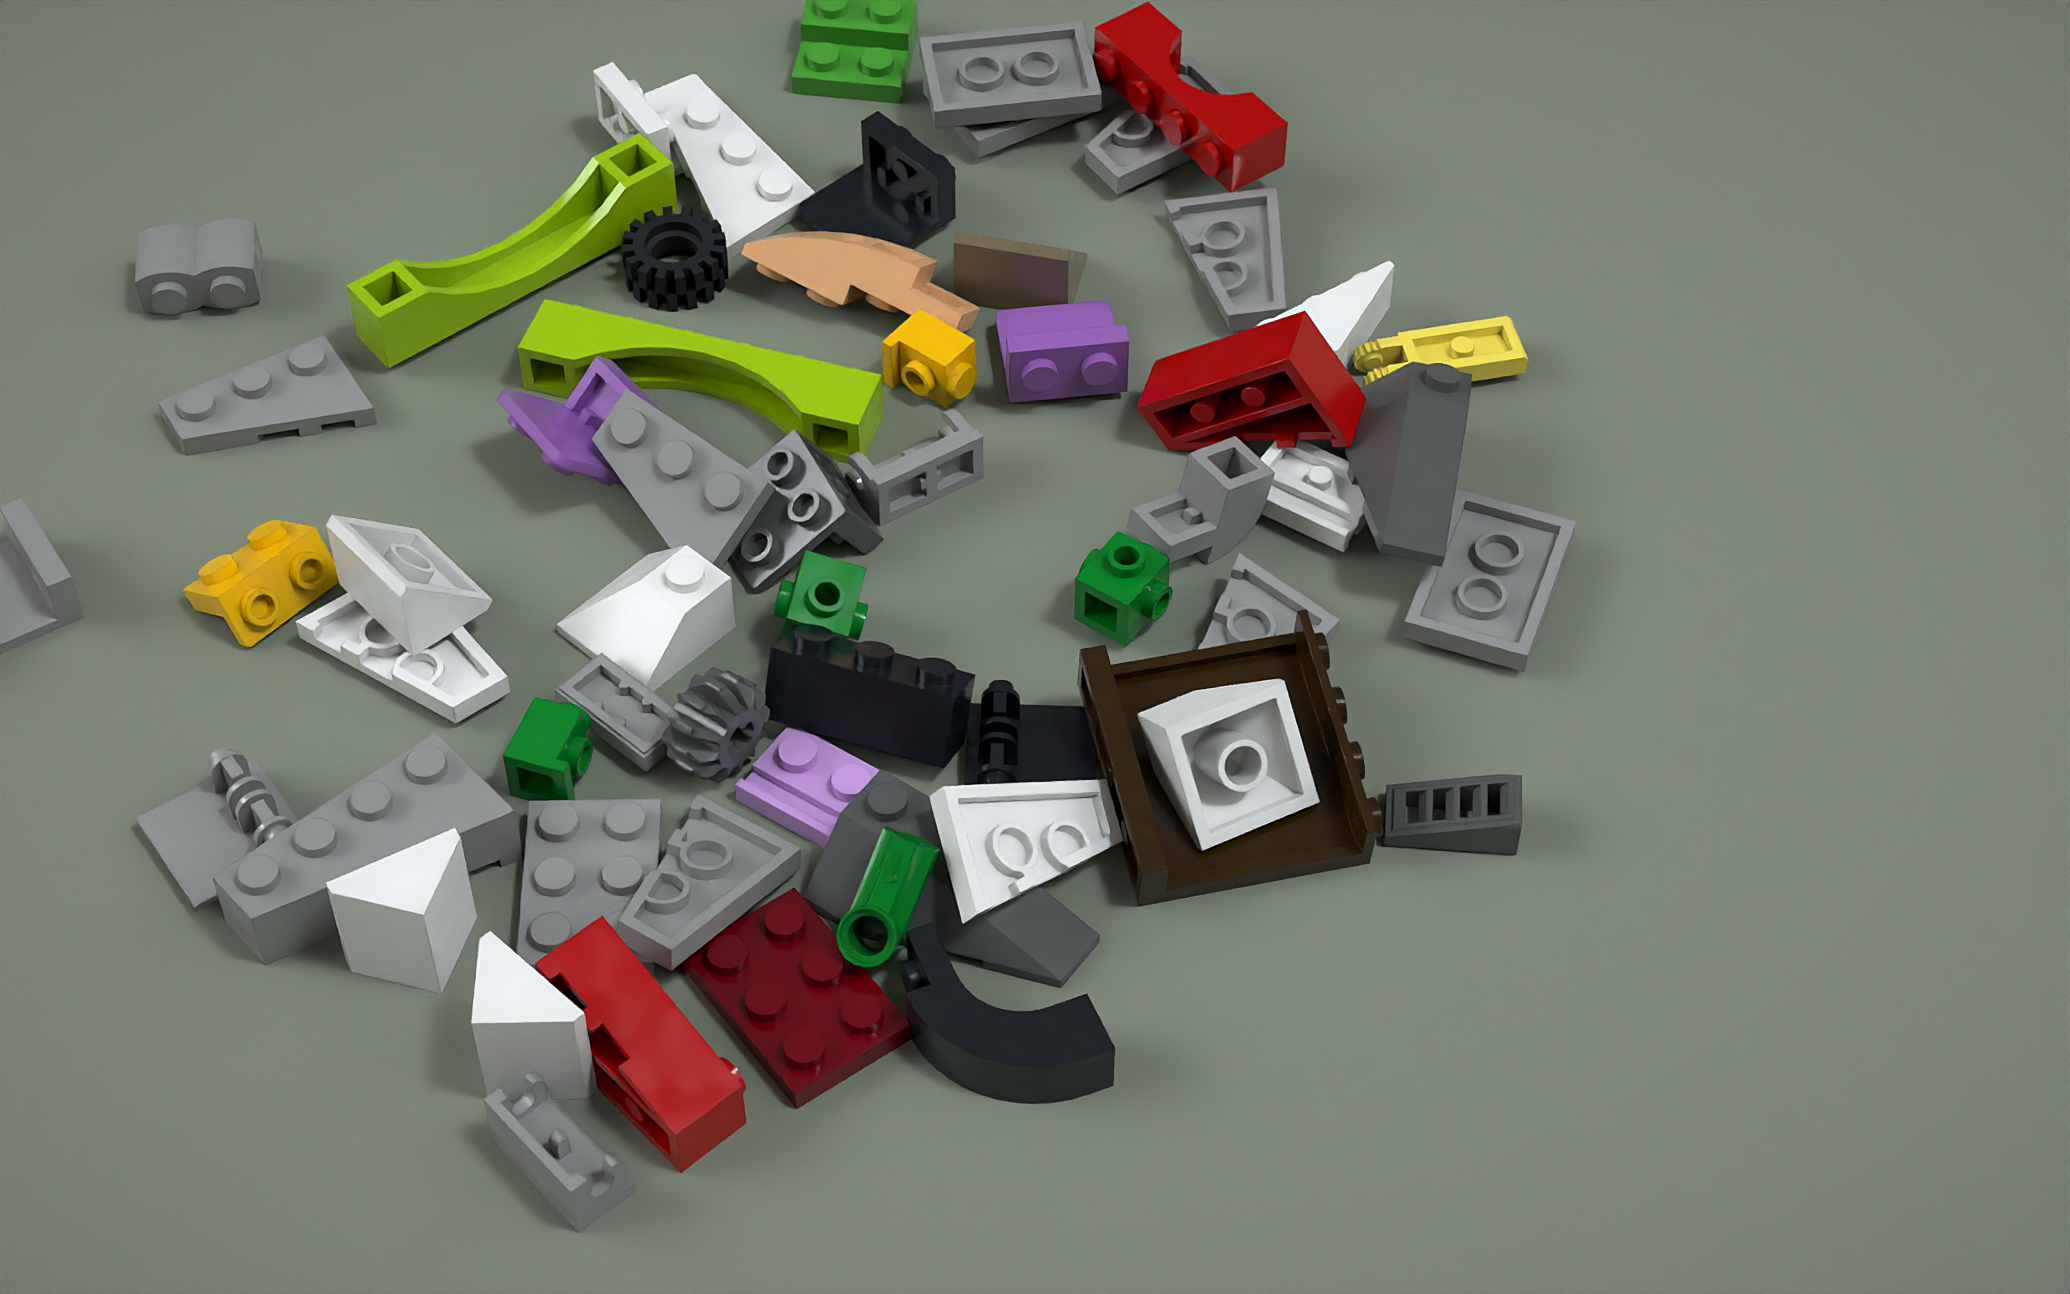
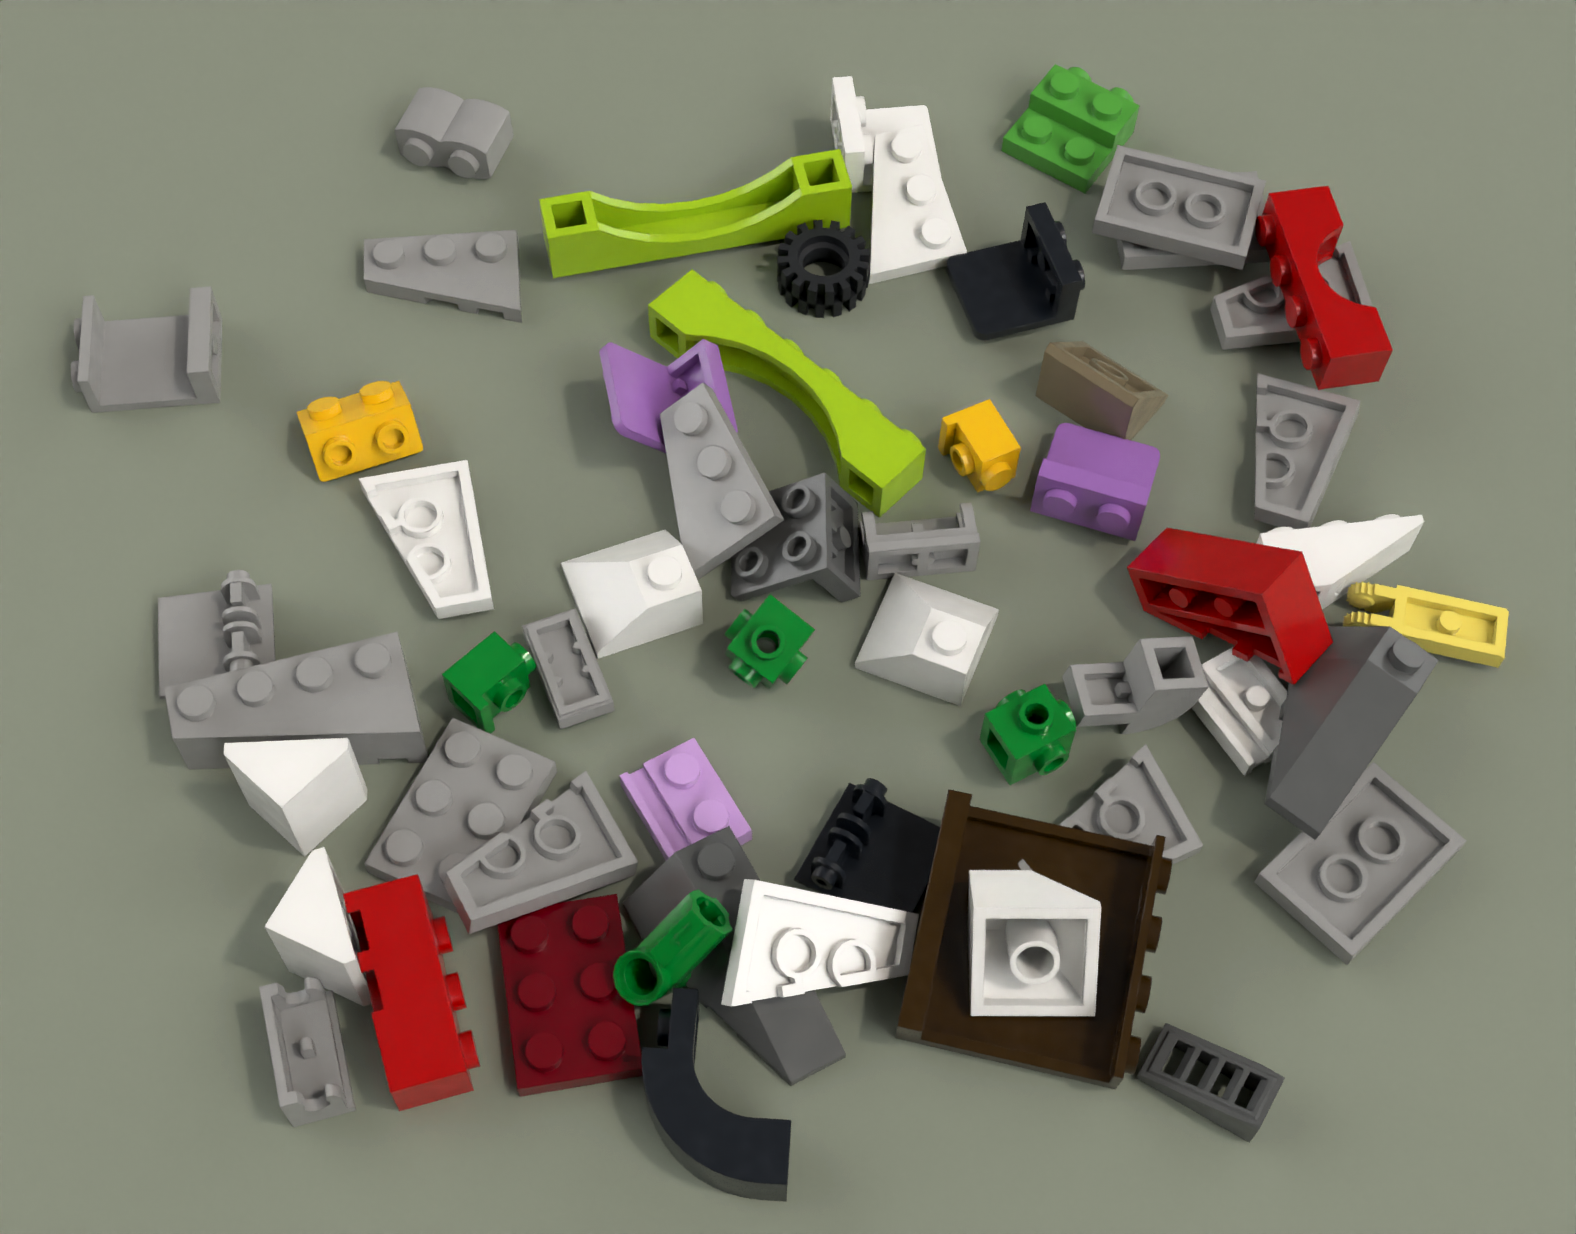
camera: 25 degrees right, 10 degrees up
(403, 581) = (454, 480): white slope -> none
(716, 724) = (625, 718): dark grey gear -> none
(846, 265) = (956, 332): light nougat slope -> none
(869, 694) = (762, 745): black brick -> none
(972, 553) = (927, 639): none -> white slope

